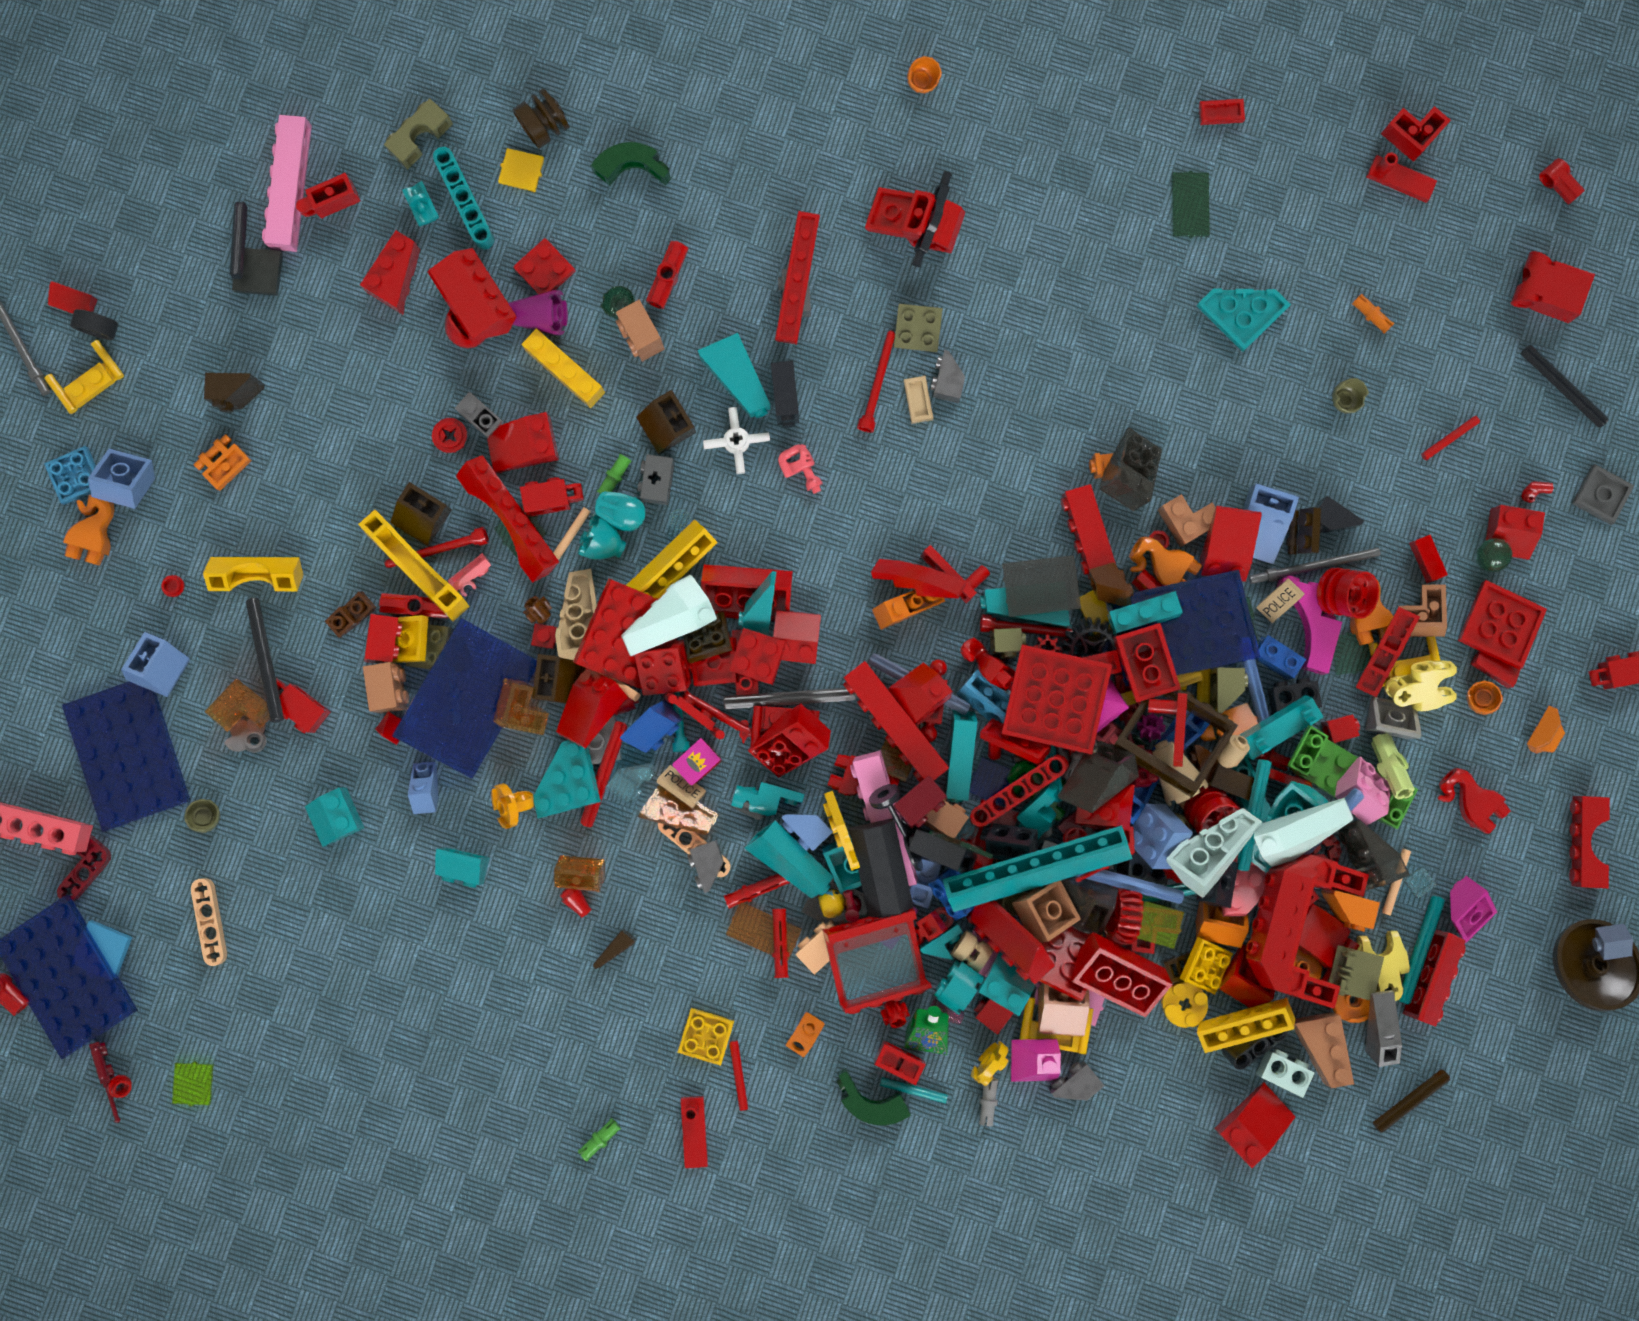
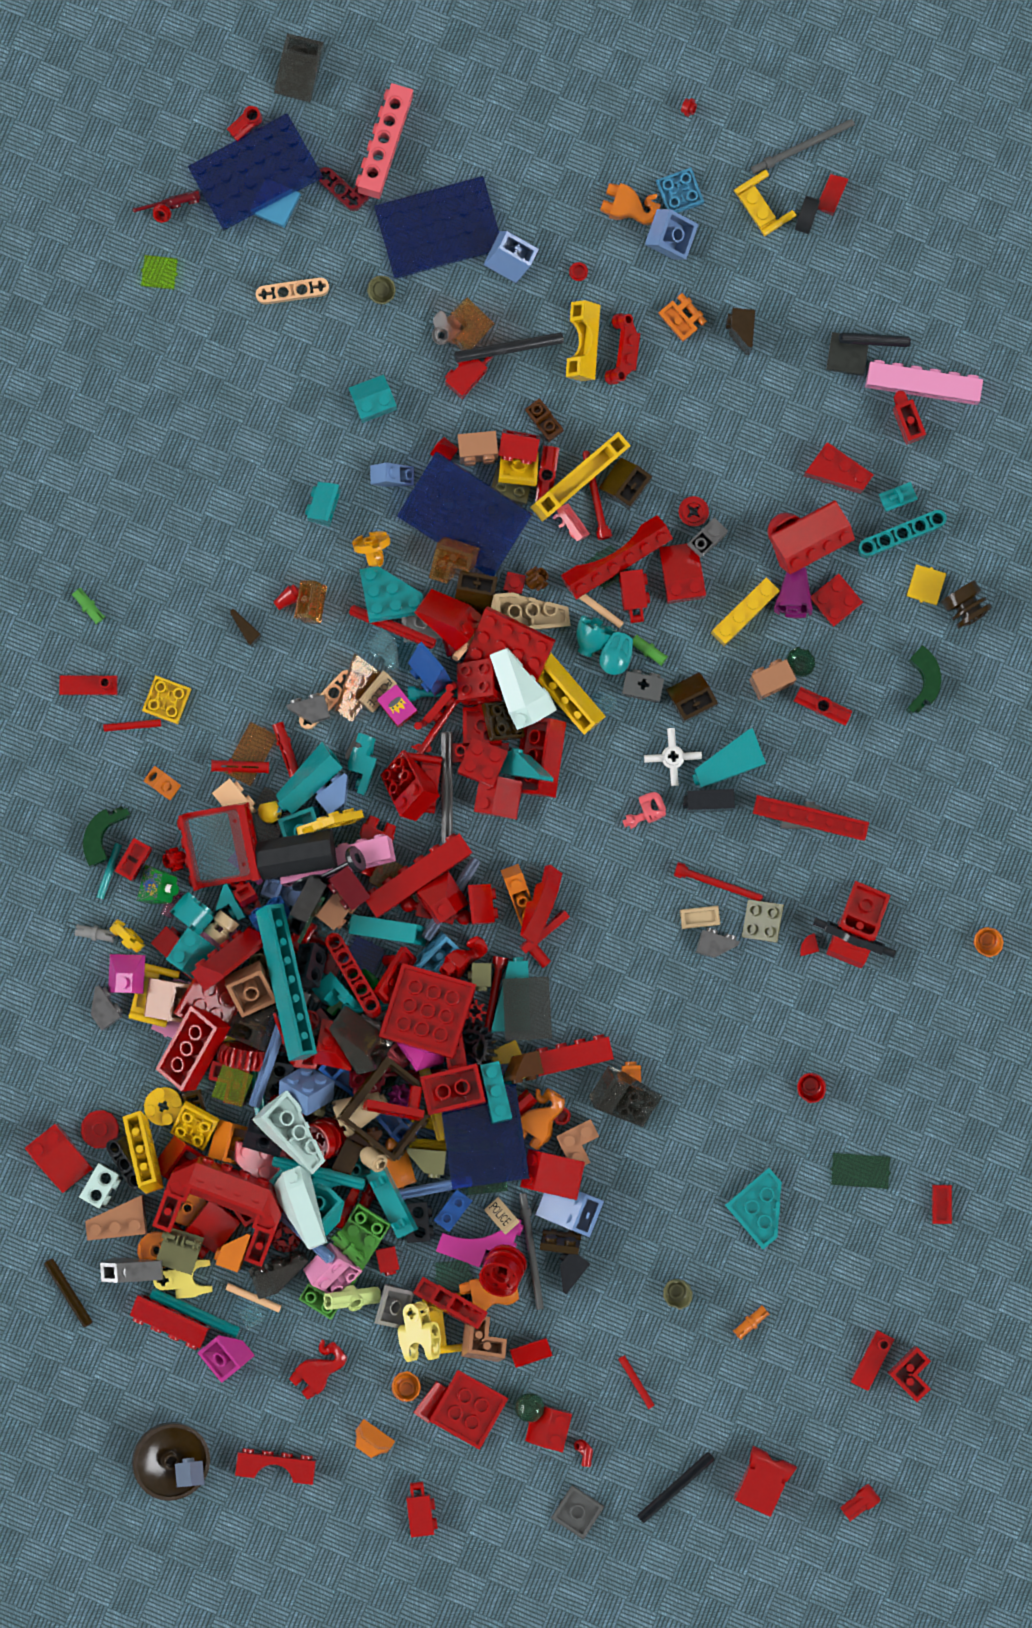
camera: 90 degrees right, 0 degrees up
(261, 522) = (627, 349): none -> red plate
(427, 118) = (953, 483): olive arch -> none
(852, 906) = (266, 829): dark red piece -> none
(922, 648) = (481, 904): none -> red slope
(941, 275) = (809, 945): none -> red tile
(1104, 260) = (811, 1087): none -> red hair
(1217, 1078) = (99, 1128): none -> red tile
(1337, 774) = (347, 1248): none -> bright green pin

